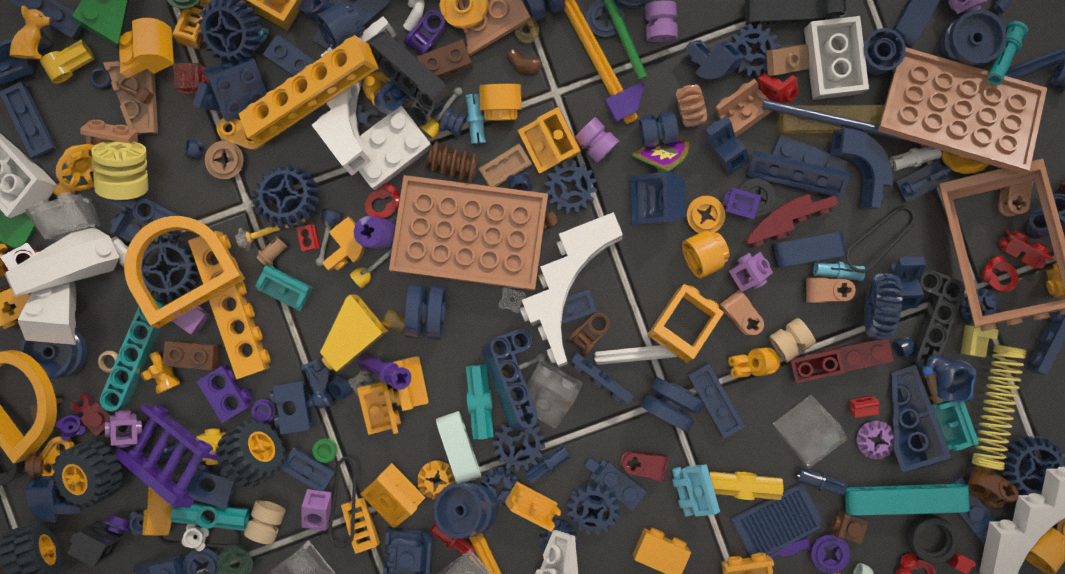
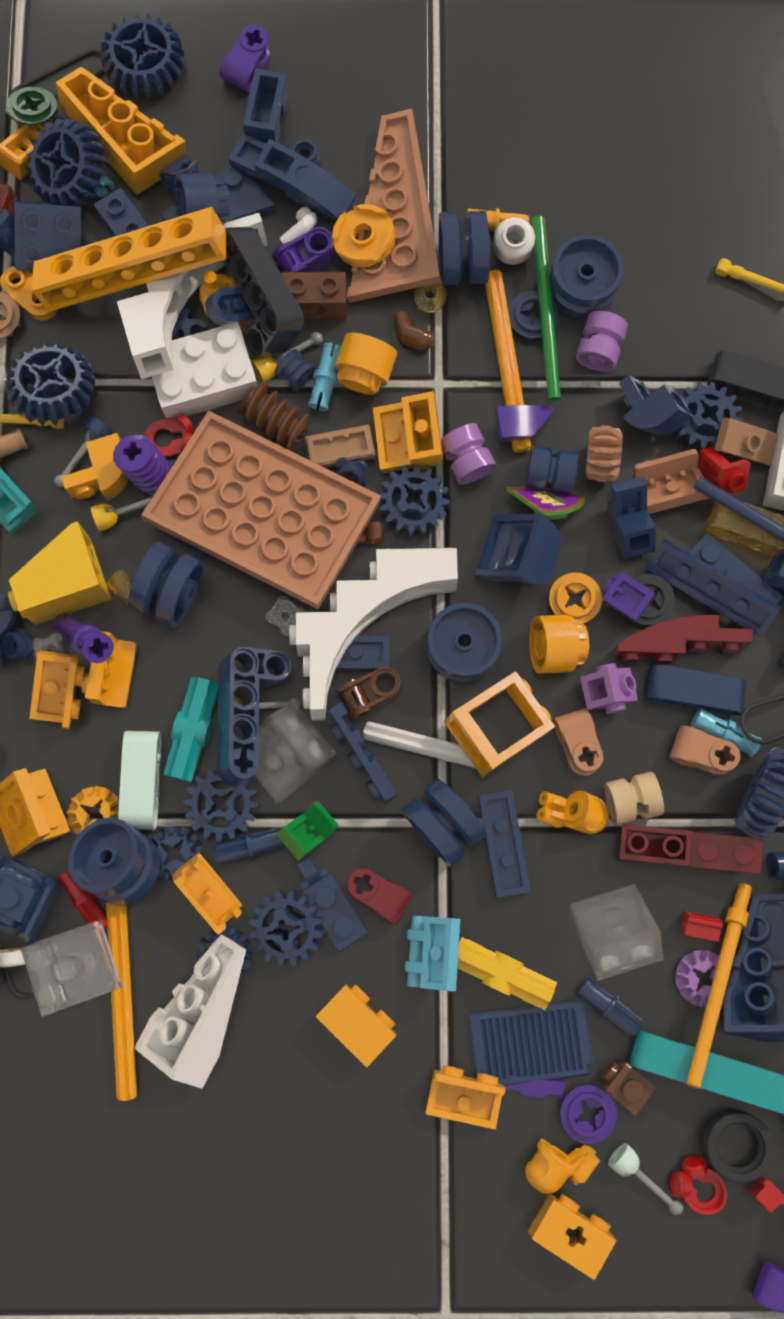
camera: 15 degrees right, 10 degrees down
(312, 235) = (65, 444): red piece -> none
(583, 441) = (308, 830): none -> green bracket
(647, 290) = (468, 623): none -> dark blue wheel
(886, 394) = (736, 920): none -> light orange bar

